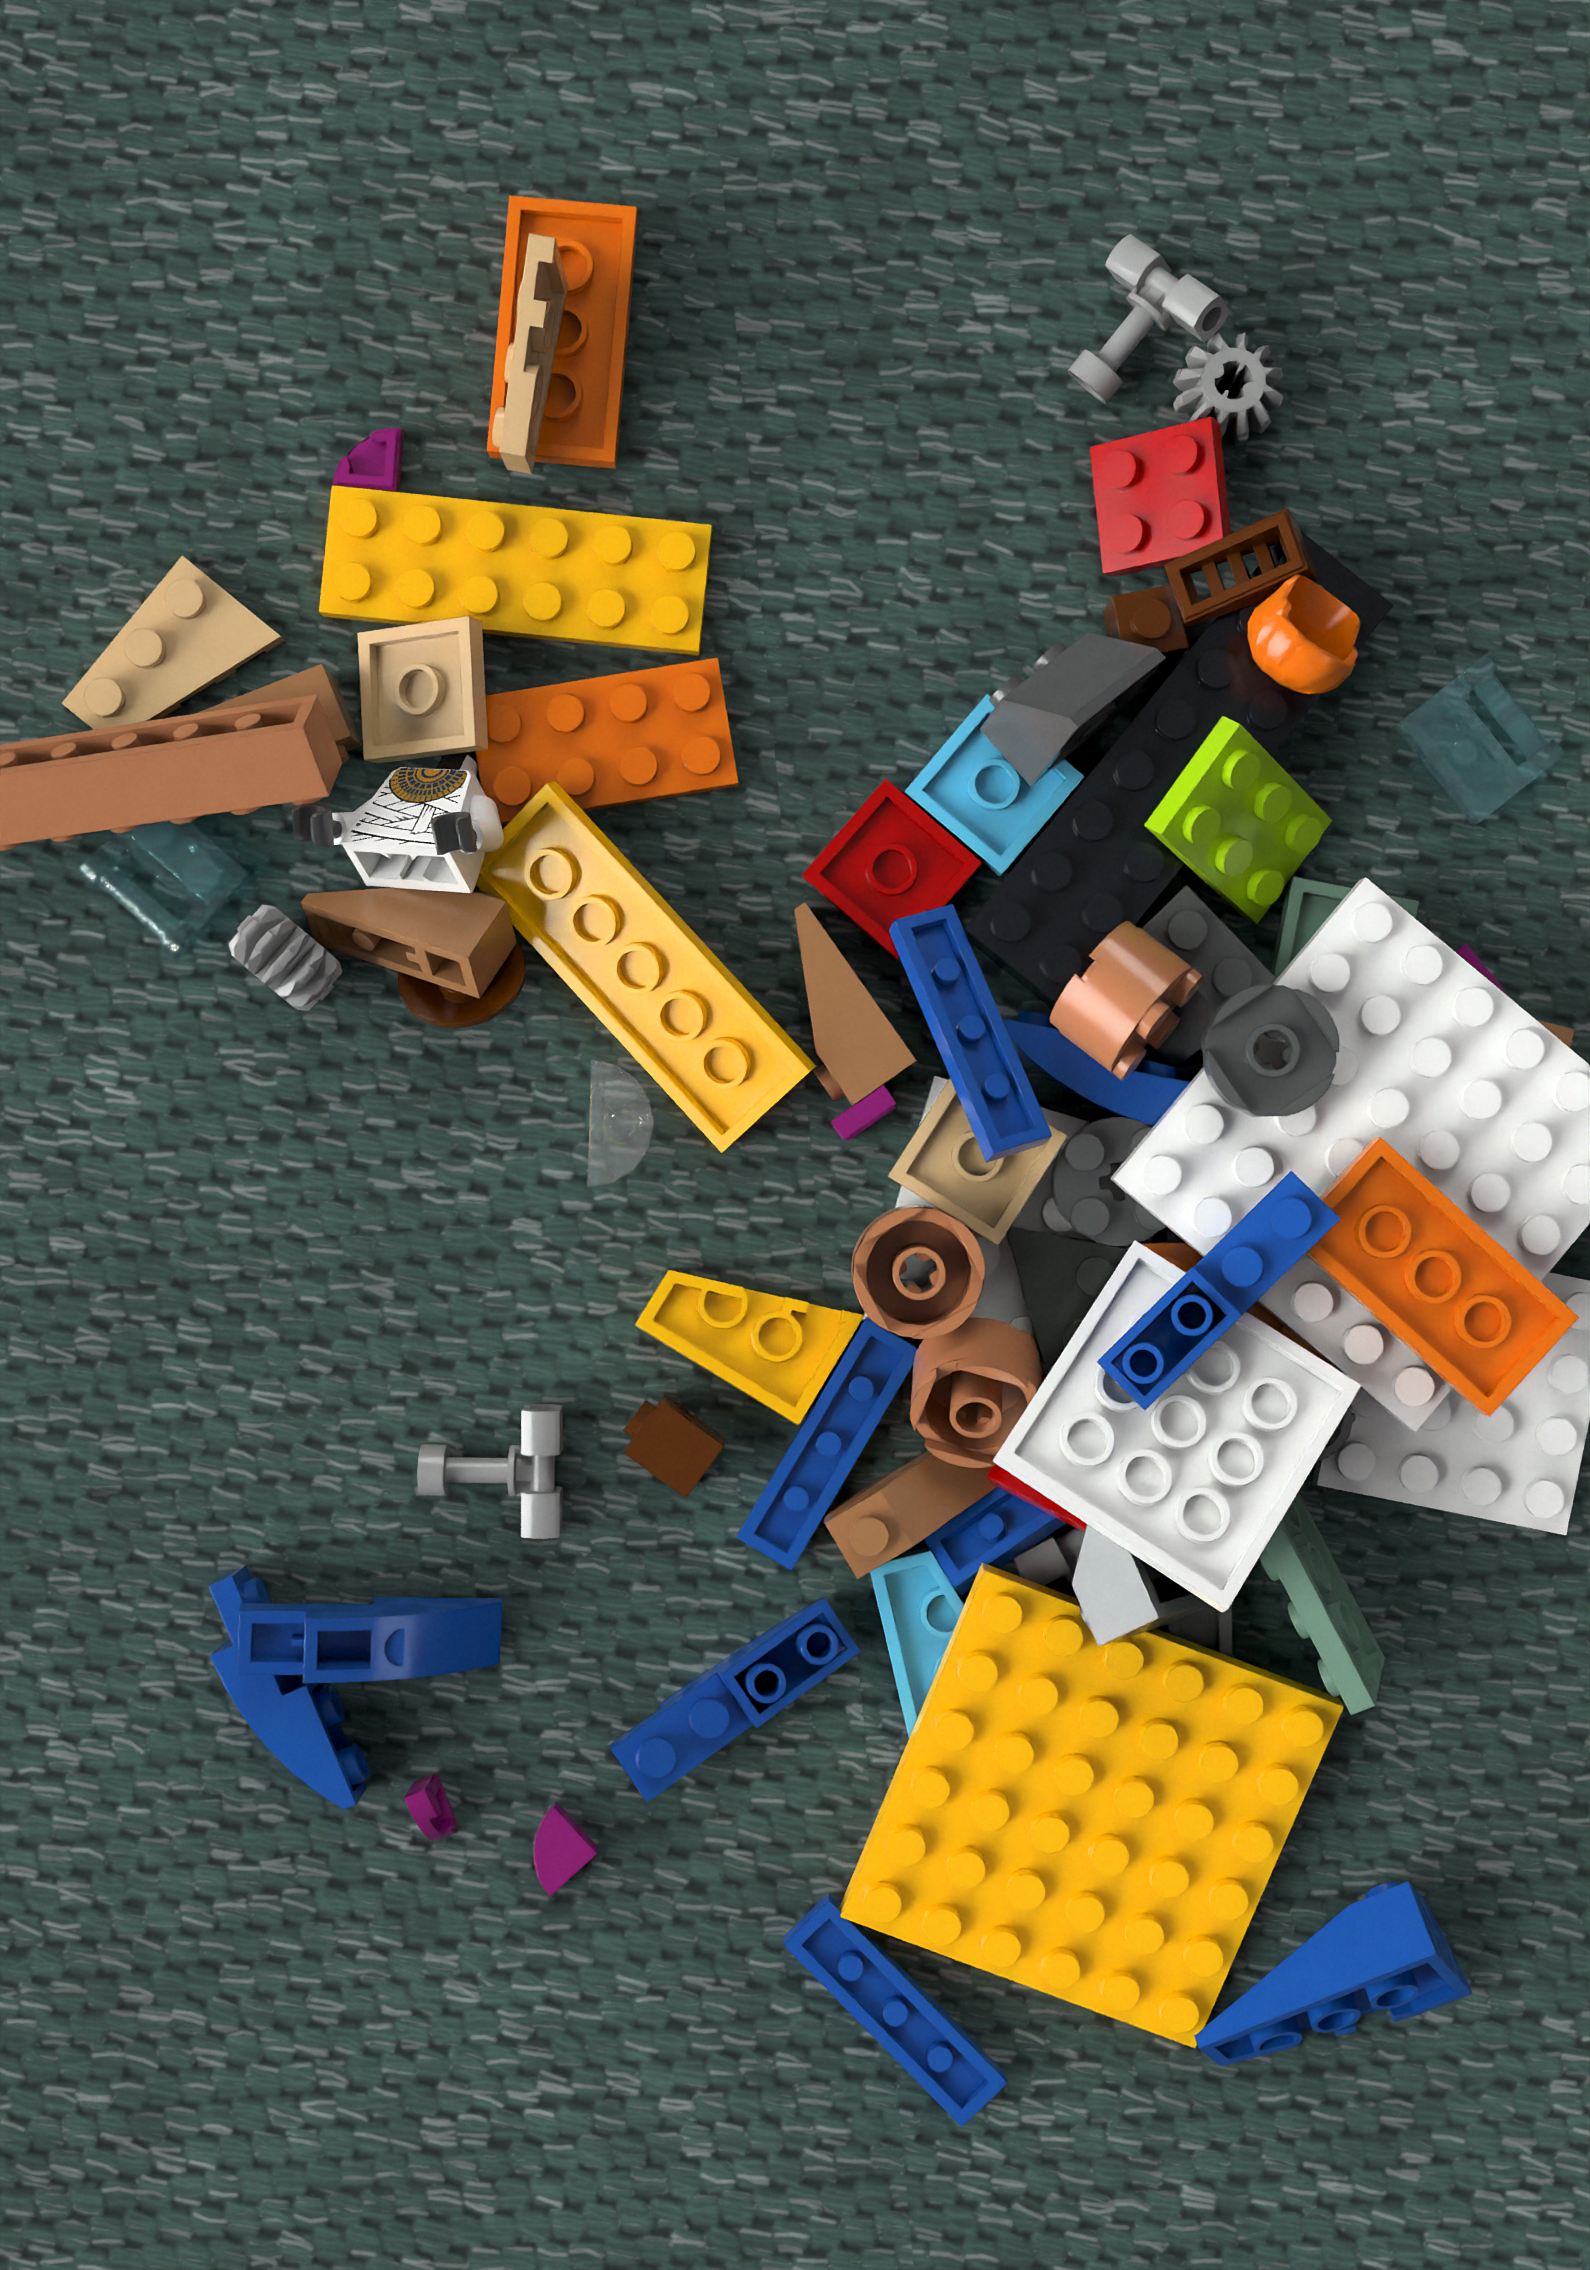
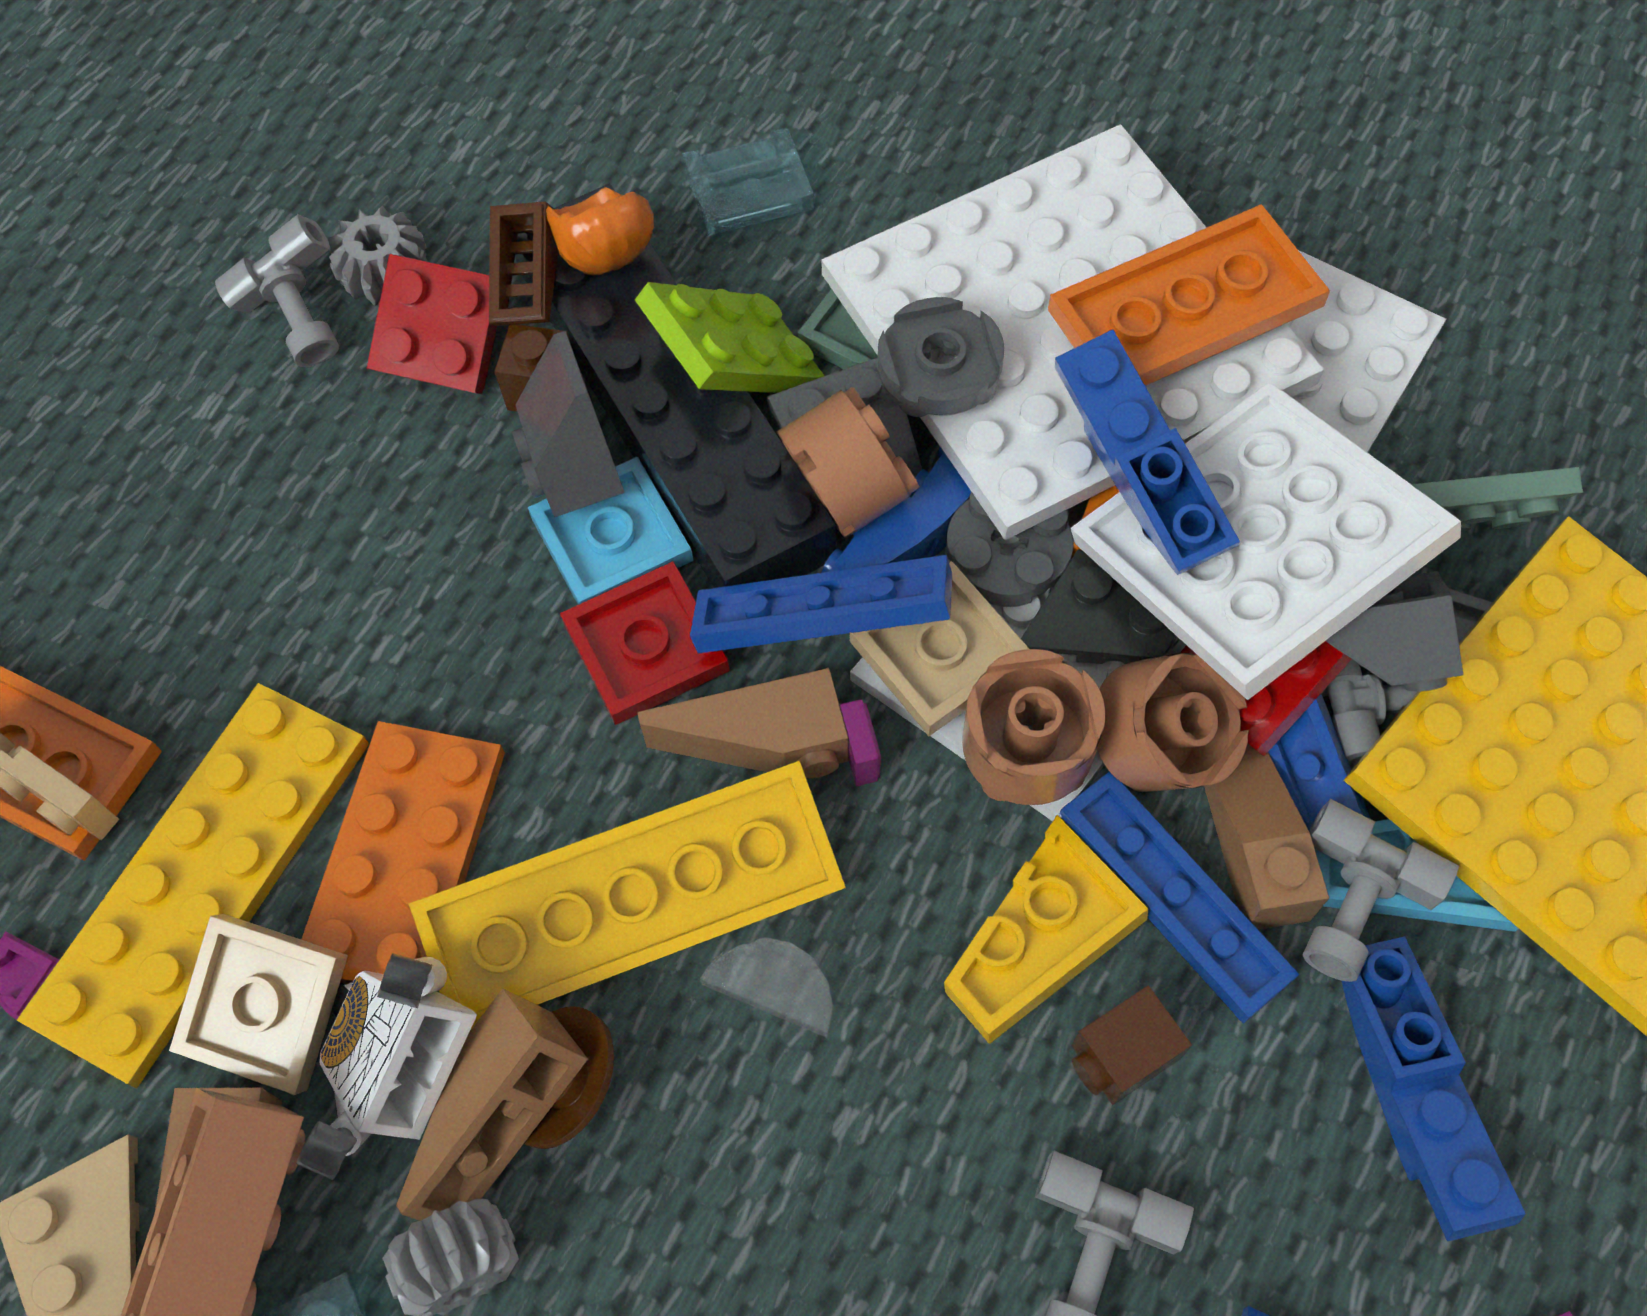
camera: 70 degrees left, 25 degrees down
(906, 1609) = (1373, 872): none -> light grey bar

